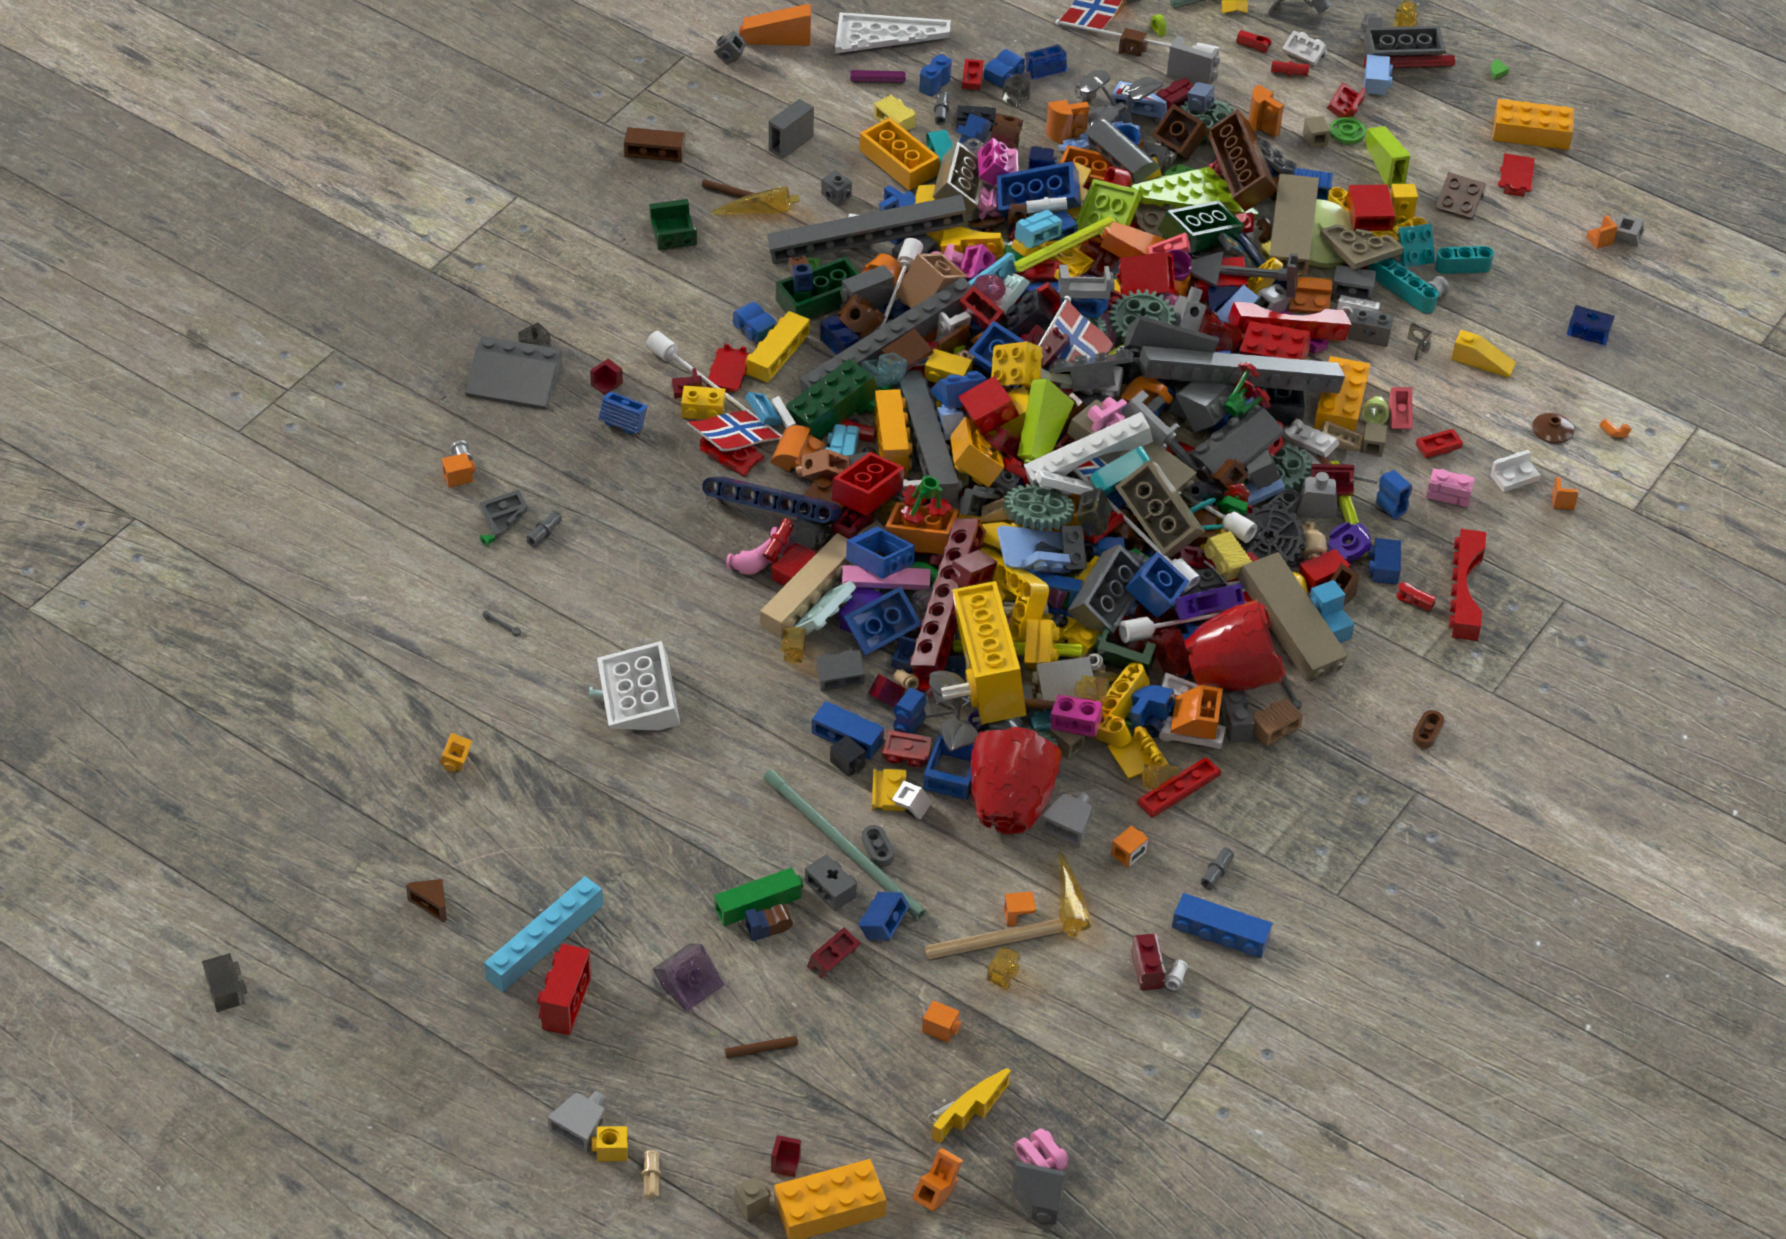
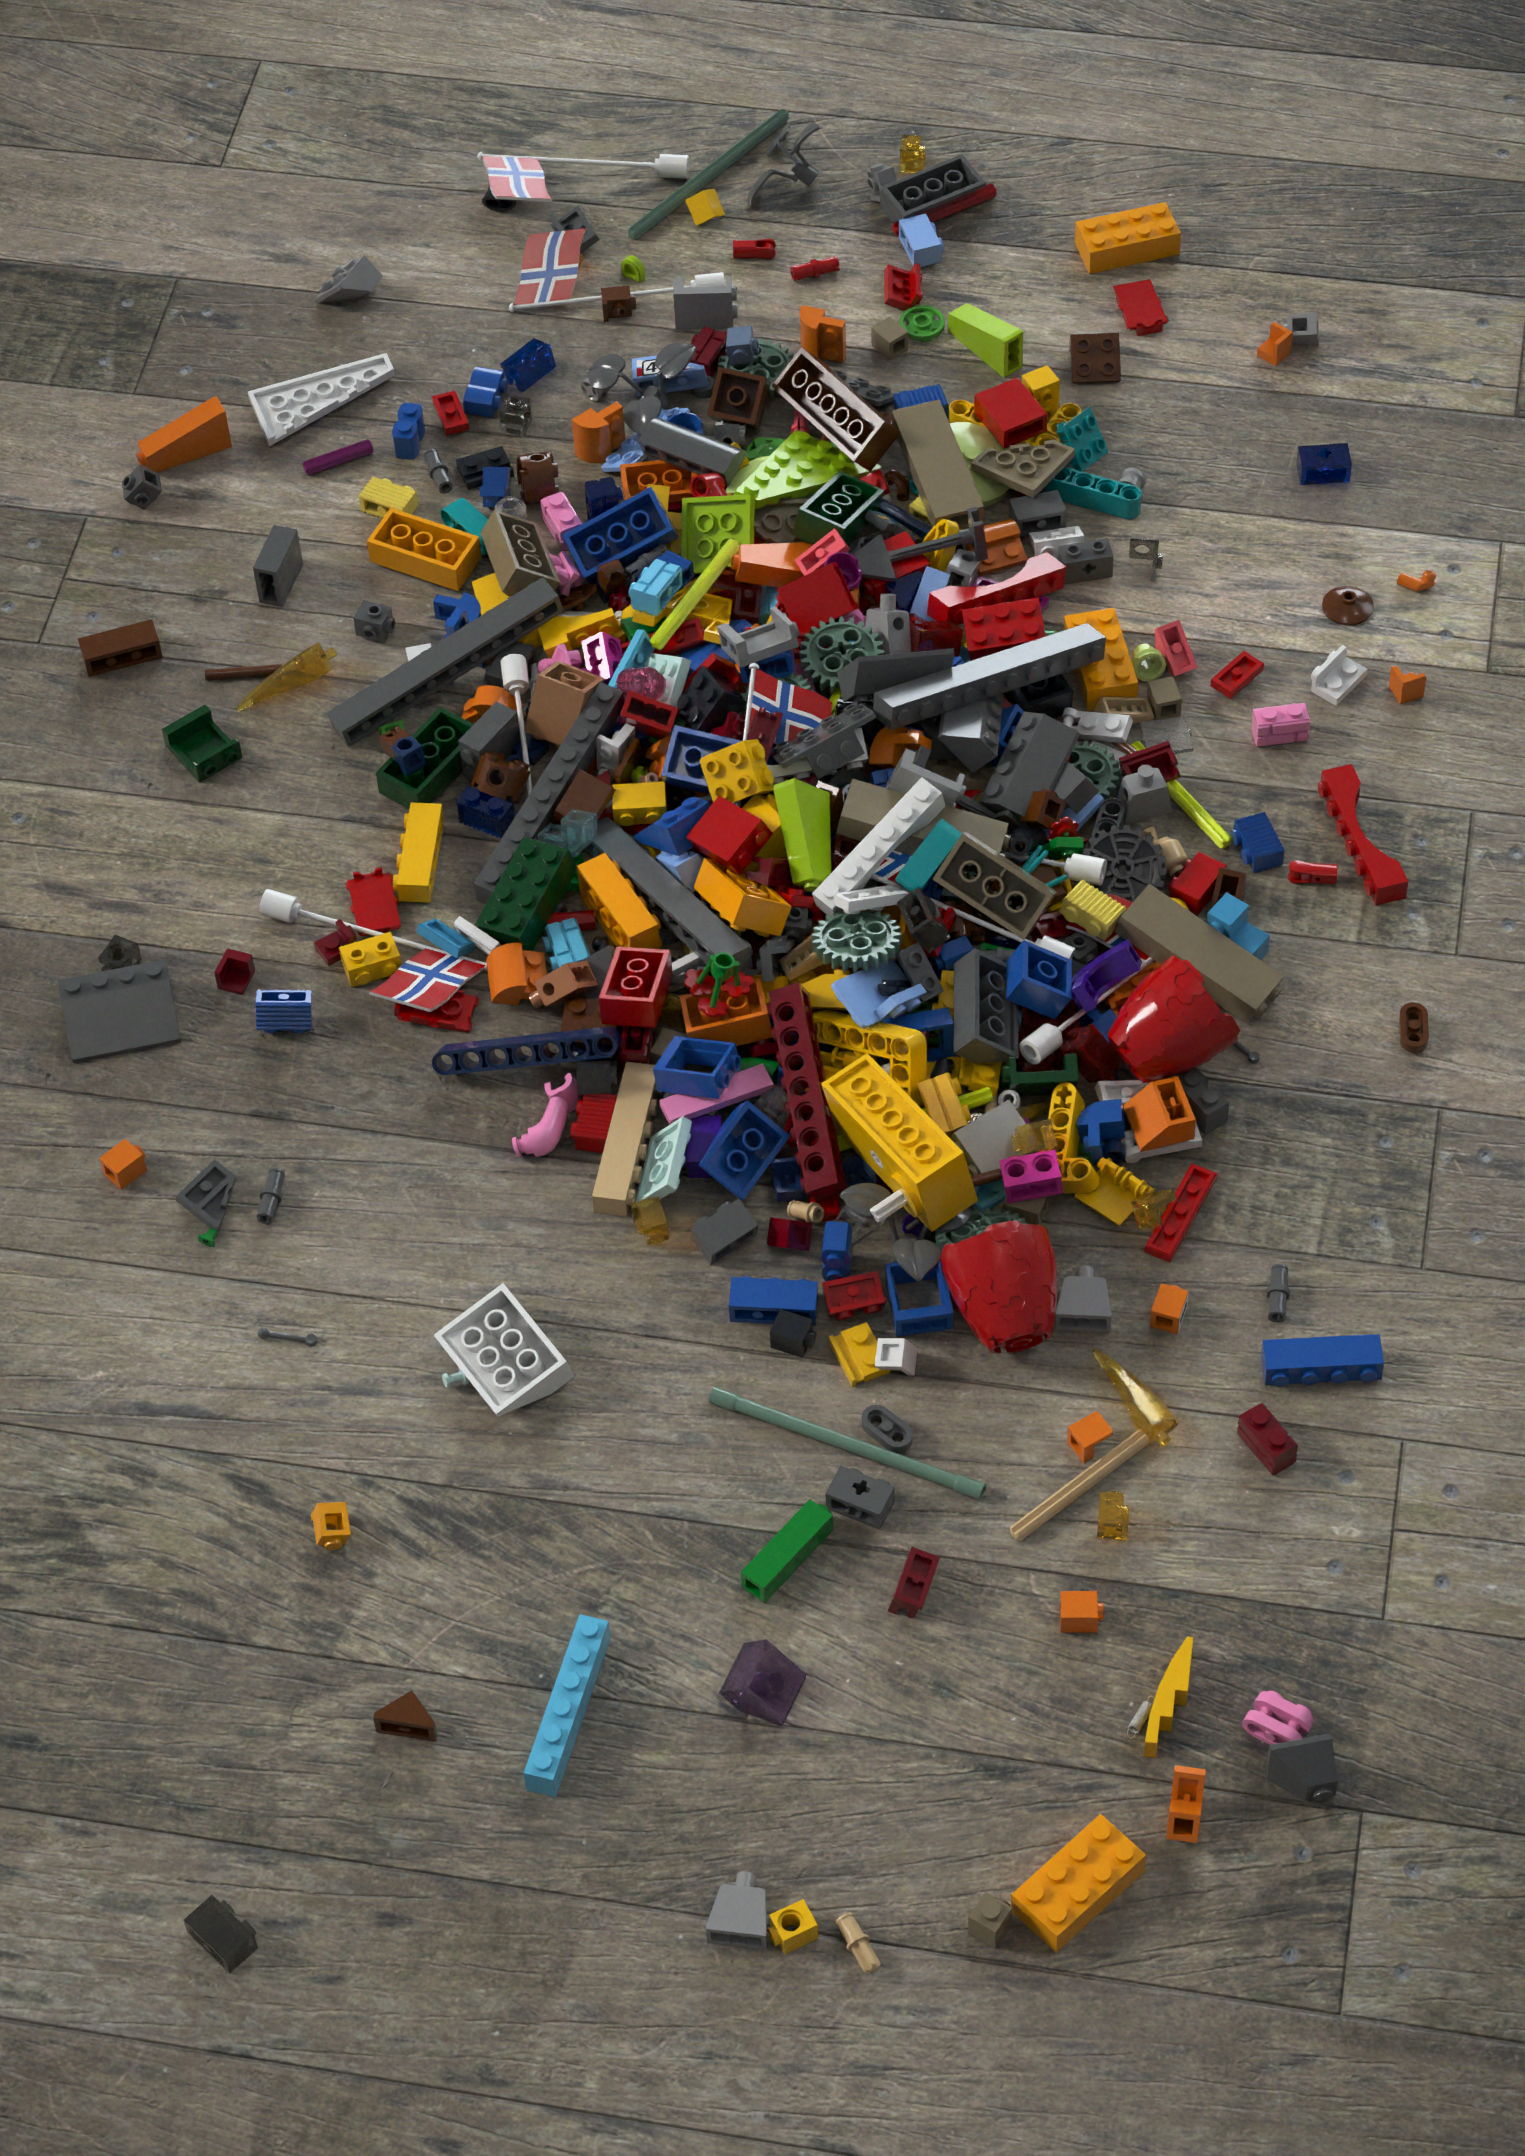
camera: 20 degrees left, 5 degrees up
(460, 447) = (111, 1136): light grey bush -> none
(564, 989) = (634, 1763): red brick -> none
(753, 321) = (373, 831): blue brick -> none
(761, 1046) = (892, 1731): reddish brown bar -> none
(767, 922) = (815, 1577): leg -> none
(778, 540) = (565, 1098): red pin -> none
(786, 1156) = (998, 1852): dark red panel -> none
(883, 915) = (944, 1512): blue brick -> none
(974, 569) = (825, 1044): dark red hinge -> none
(992, 161) = (547, 519): dark pink brick -> none
(1046, 204) = (645, 552): white pin -> none
(1110, 415) = (884, 793): bright pink hips -> none
(1174, 979) = (1304, 1438): white pin -> none
(1245, 388) = (1007, 697): plant -> none
(1276, 721) = (1246, 1087): medium nougat brick -> none
(1305, 48) = (818, 236): white bracket -> none
(1344, 532) = (1196, 825): dark purple plate -> none
(1393, 494) = (1226, 758): blue brick -> none
(1464, 259) = (1142, 436): teal beam -> none
(1479, 353) = (1224, 546): yellow slope -> none
(1498, 69) = (1049, 182): bright green tile -> none

